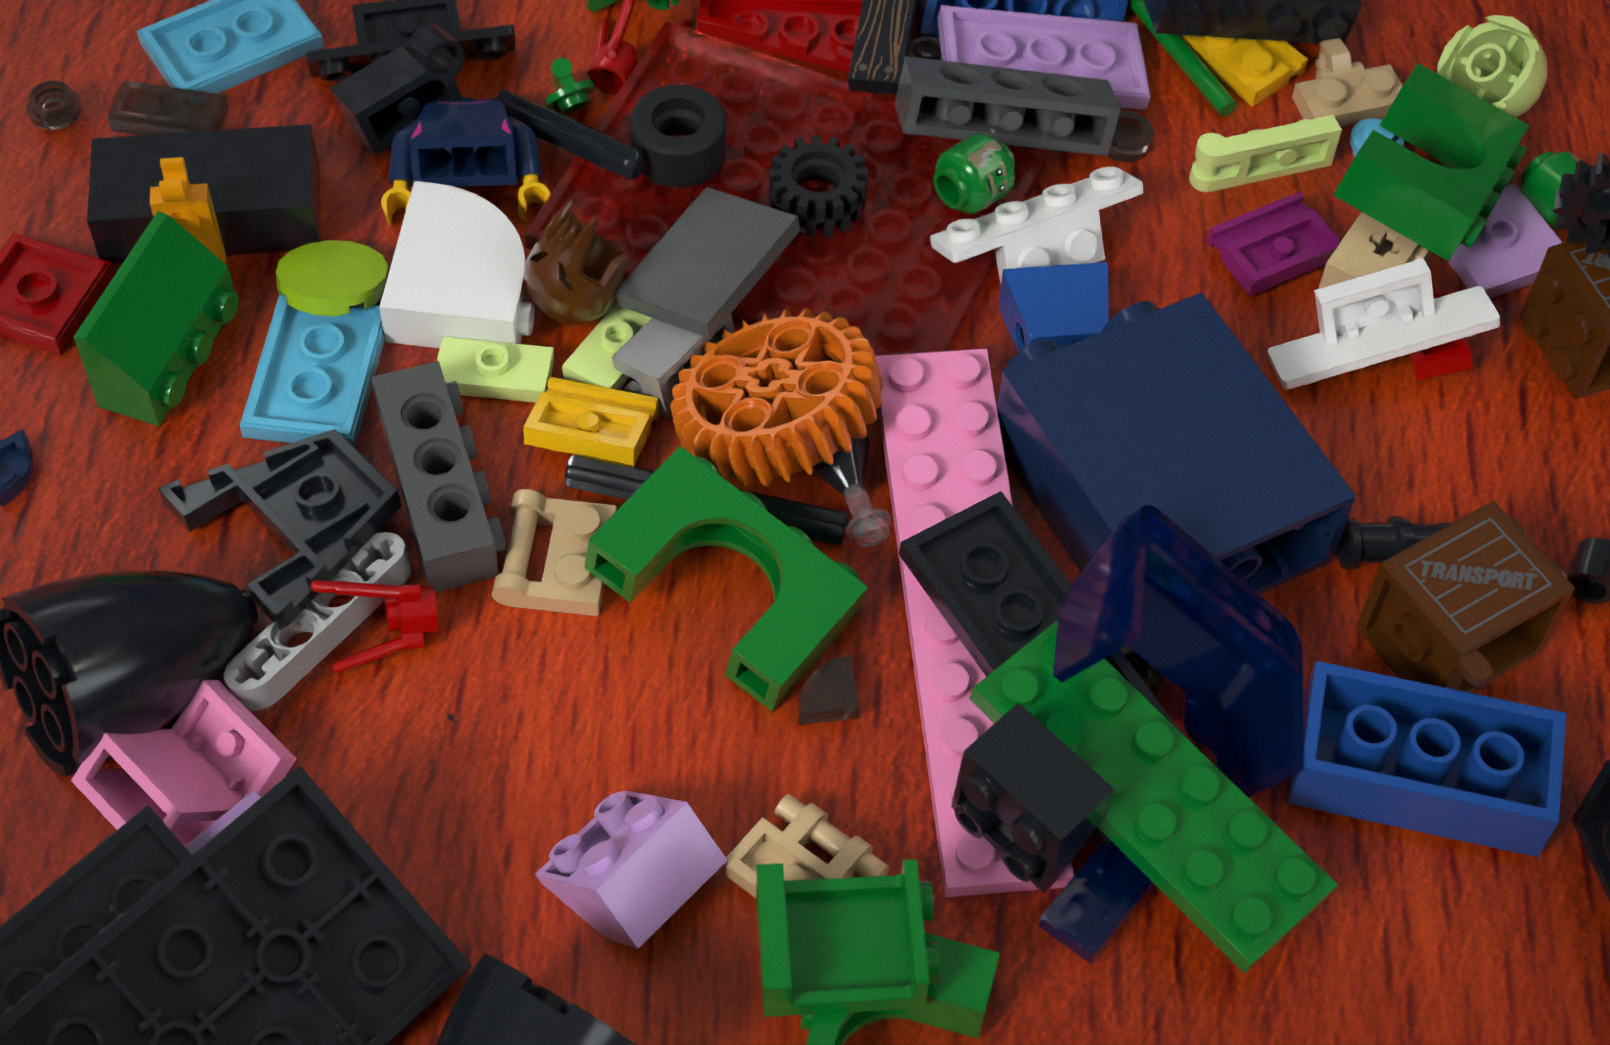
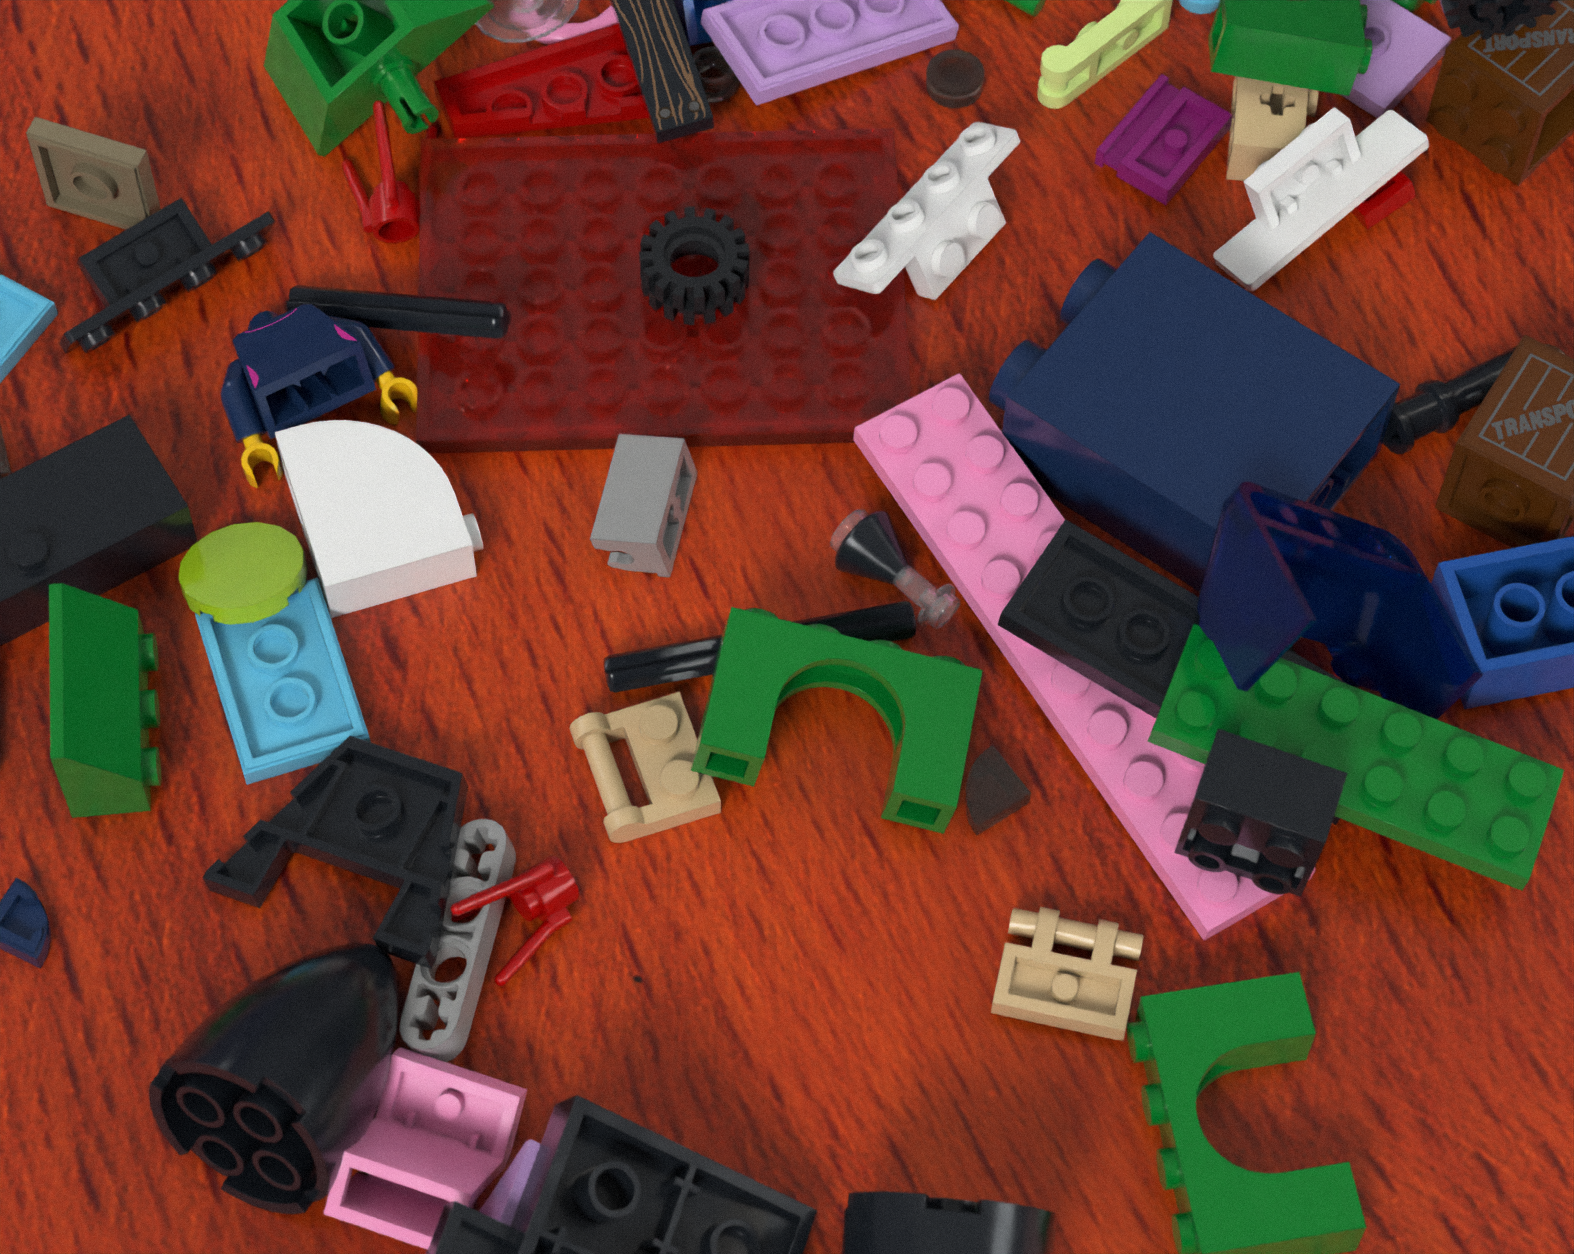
camera: 25 degrees left, 5 degrees up
(187, 204) = (62, 561): light orange plate -> none
(398, 86) = (191, 332): black hinge -> none
(426, 440) = (535, 814): dark grey brick -> none
(496, 368) = (466, 601): yellowish green plate -> none
(570, 95) = (363, 260): green plate -> none
(574, 270) = (504, 462): reddish brown helmet -> none
(591, 421) = (602, 614): yellow plate -> none
(592, 359) = (568, 524): yellowish green plate -> none
(632, 865) = (908, 1044): lavender slope -> none
(679, 111) = (523, 237): black tyre -> none
(708, 262) = (632, 395): dark grey tile -> none
(778, 396) = (775, 506): orange gear -> none
(844, 942) = (1162, 1026): green panel -> none
(974, 173) = (847, 188): green head -> none
(1006, 104) = (832, 99): dark grey brick -> none
(1054, 303) = (996, 302): blue torso -> none
(1096, 902) = (1349, 882): clear blue plate -> none

